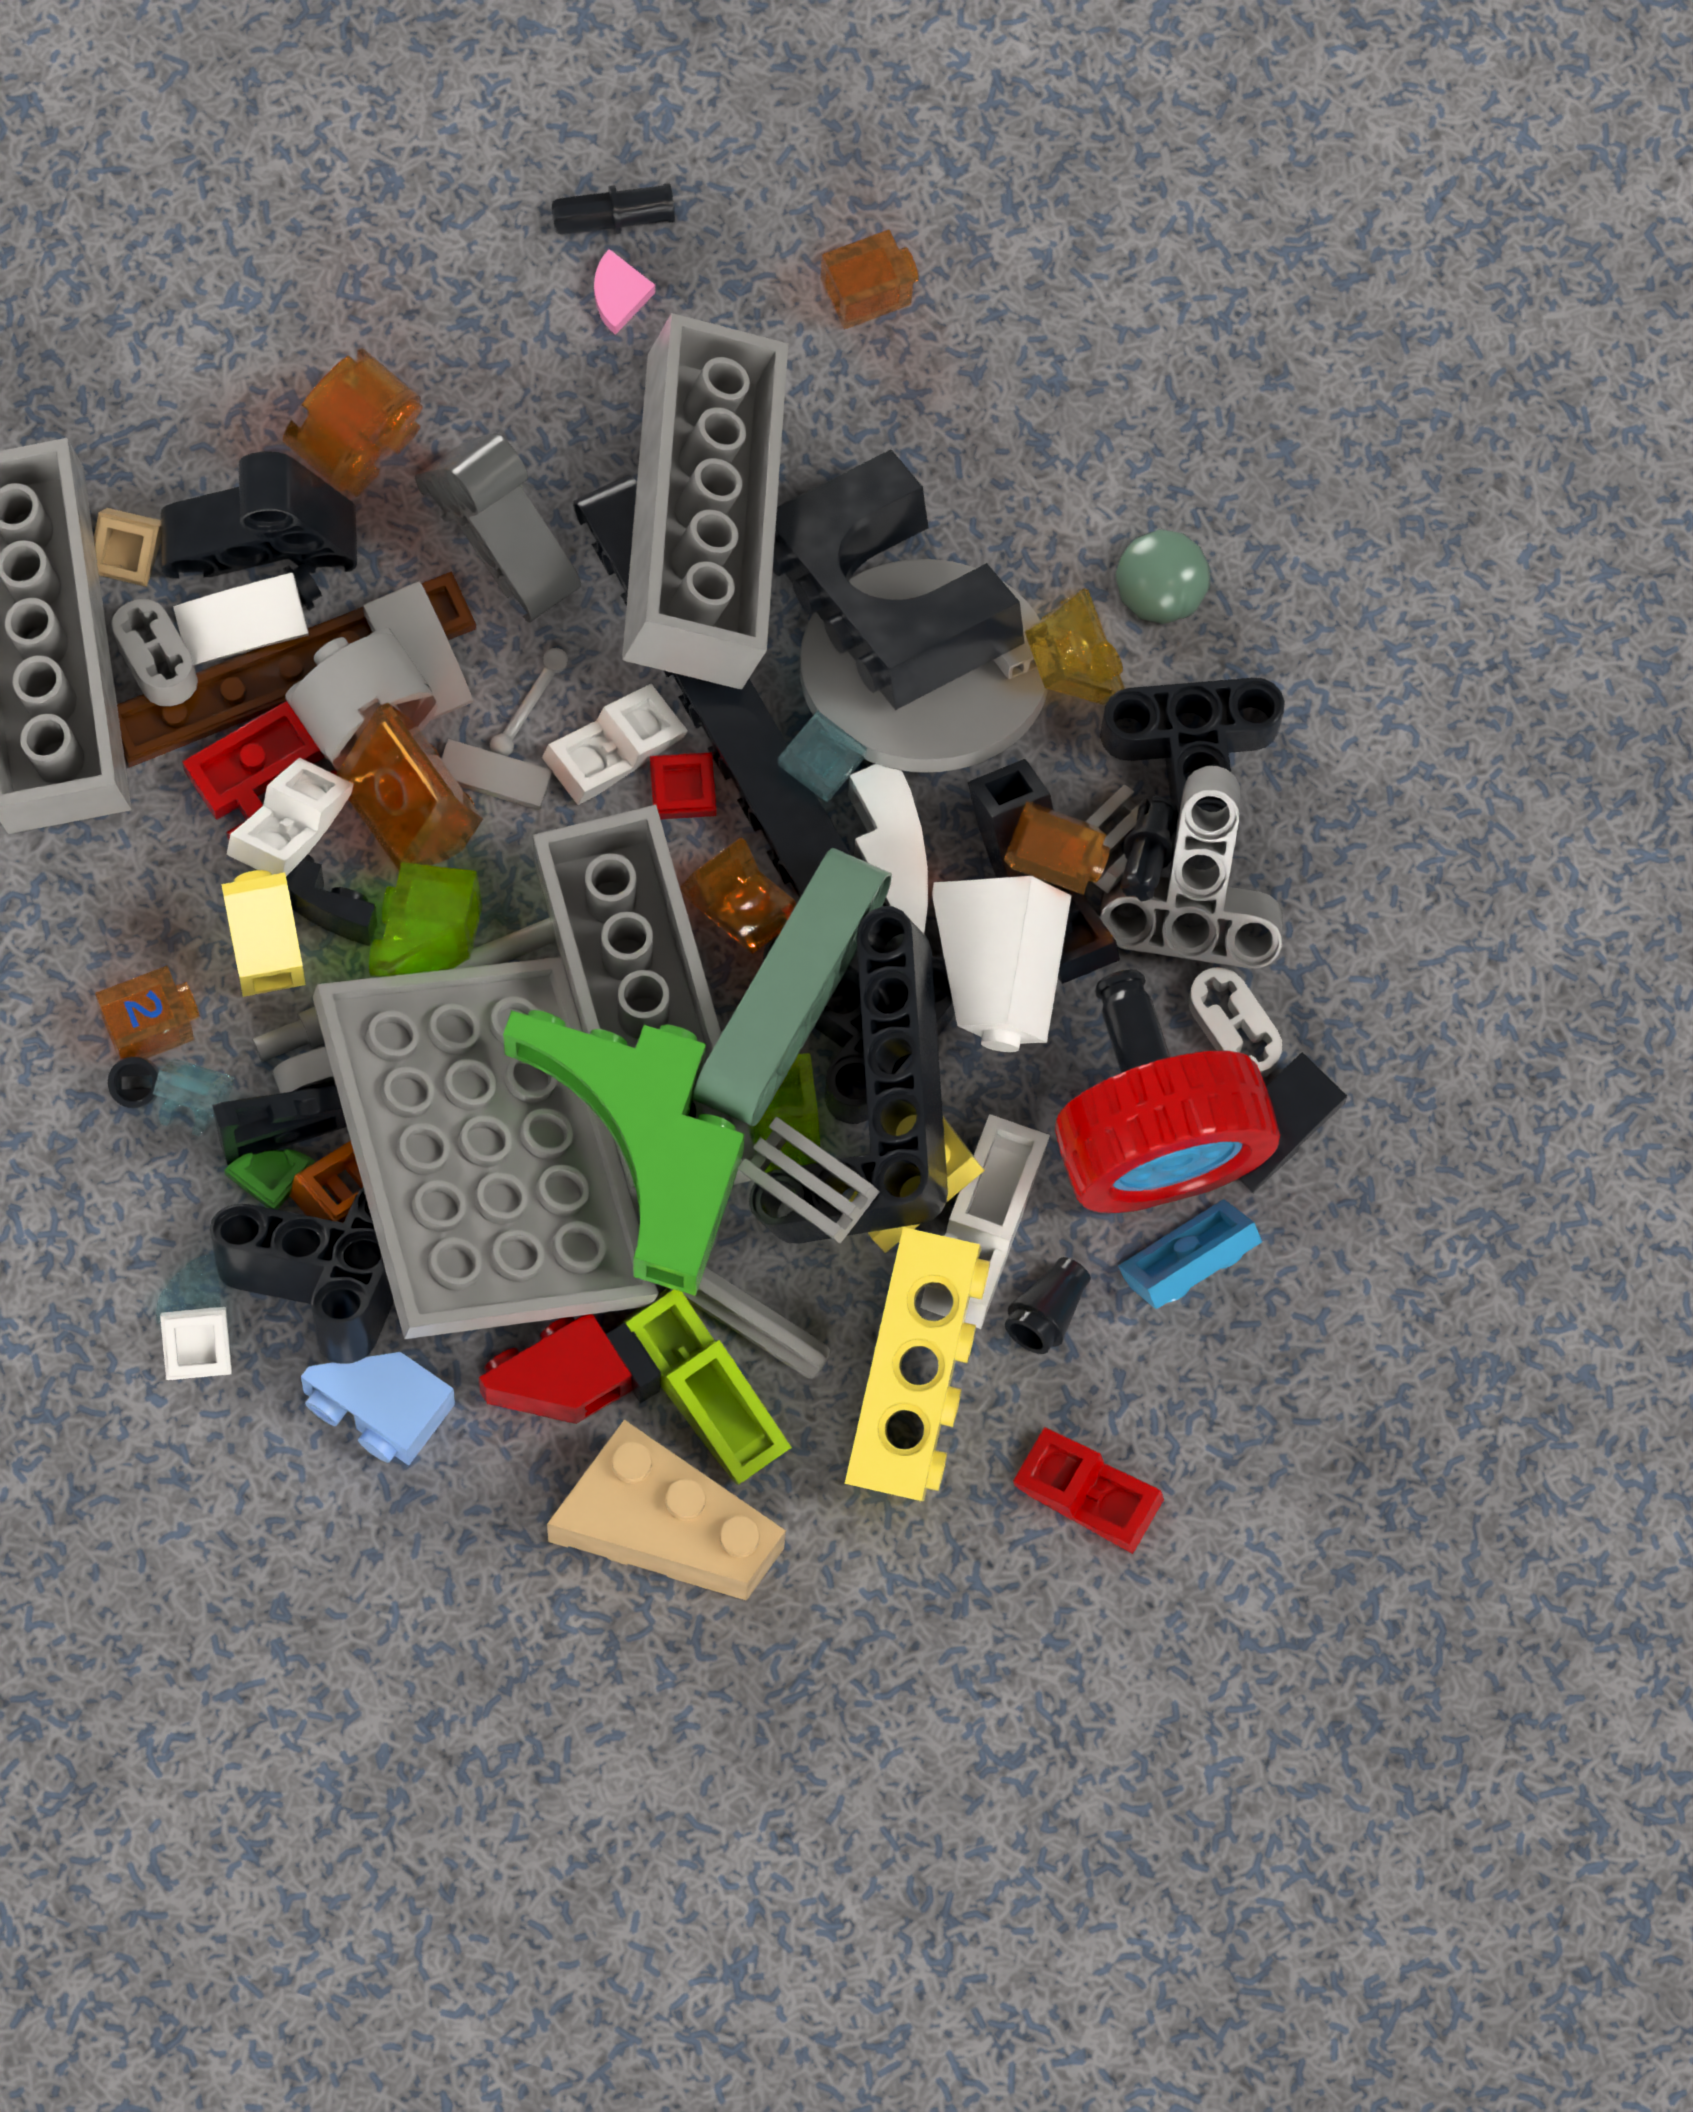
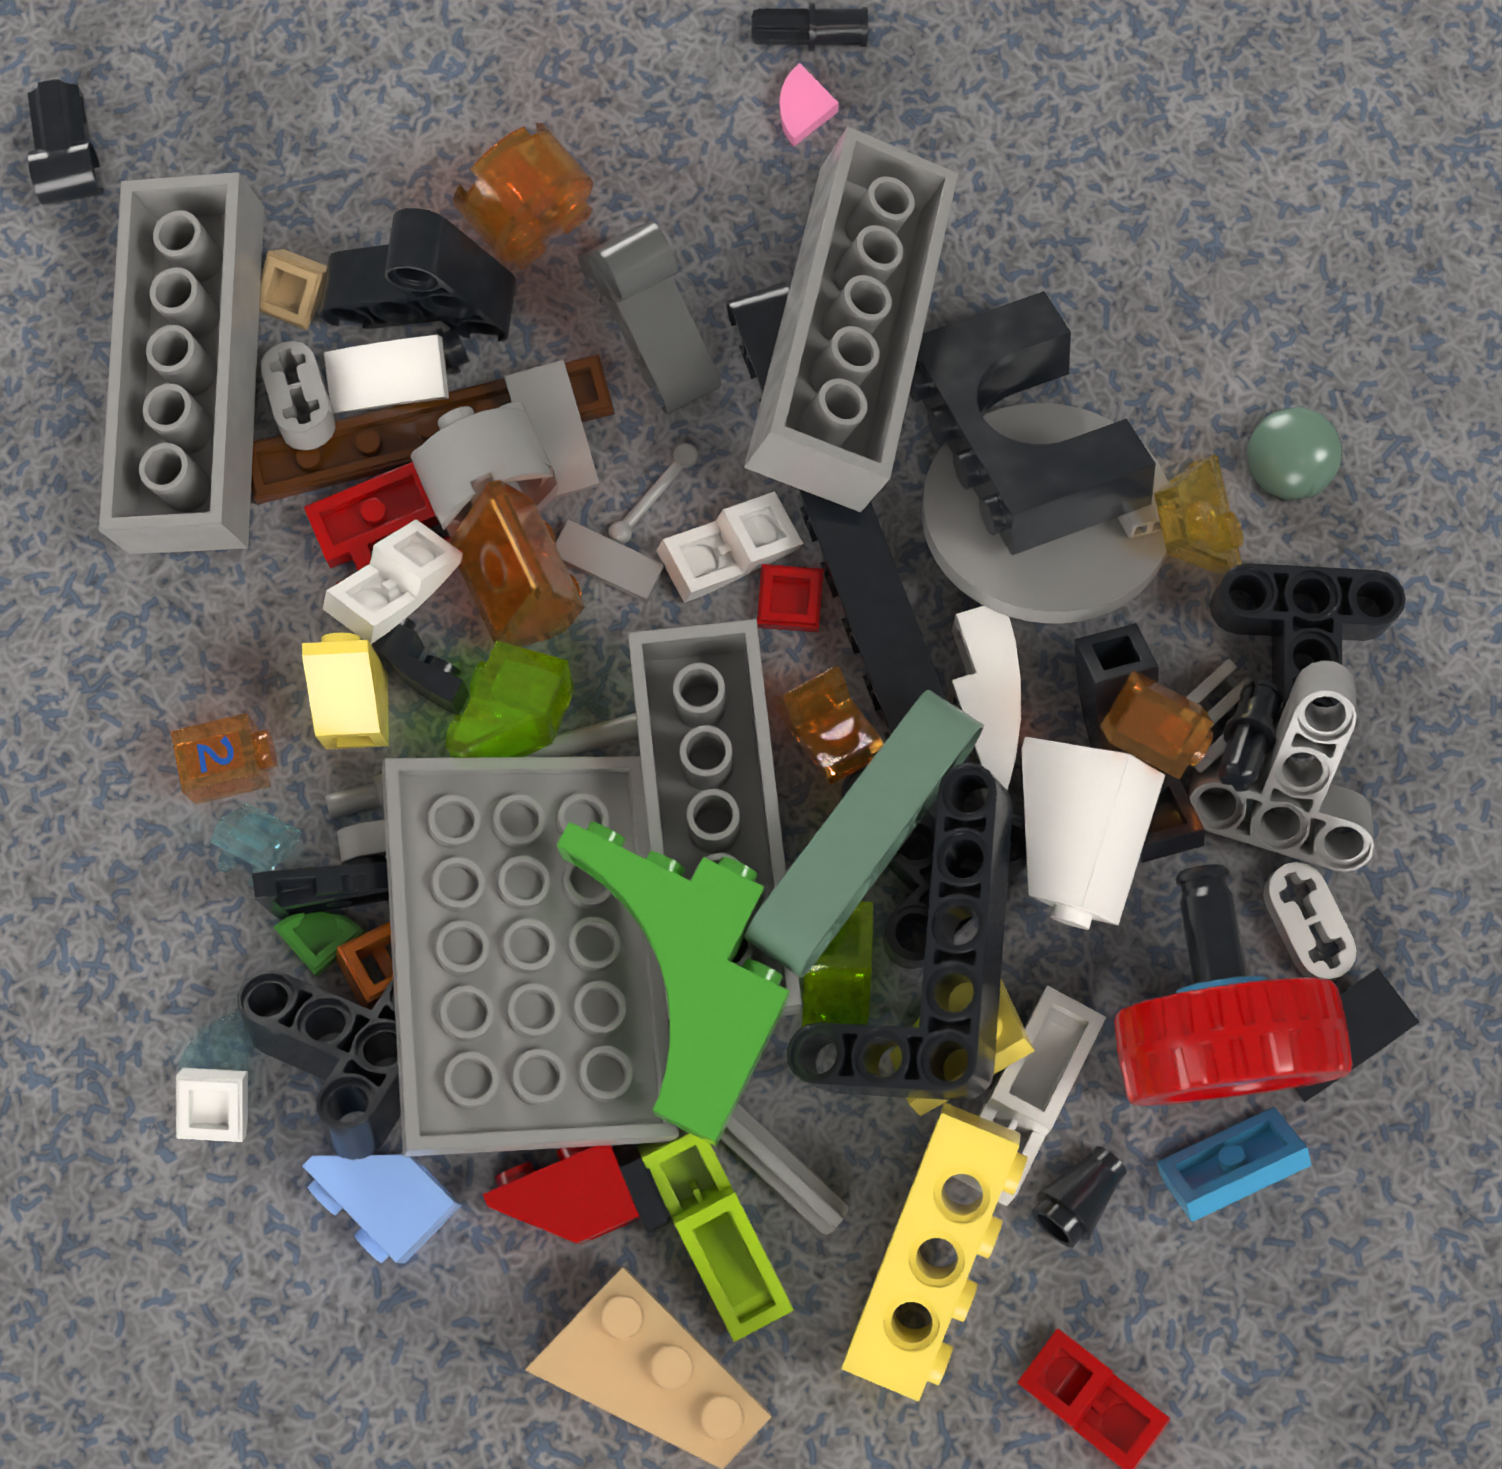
camera: 15 degrees right, 5 degrees up
(137, 1096) = (195, 837): black hinge -> none
(769, 1151) = (813, 1006): light grey tile -> none
(822, 756) = (931, 591): clear light blue tile -> none
(868, 278) = (1045, 122): clear orange brick -> none

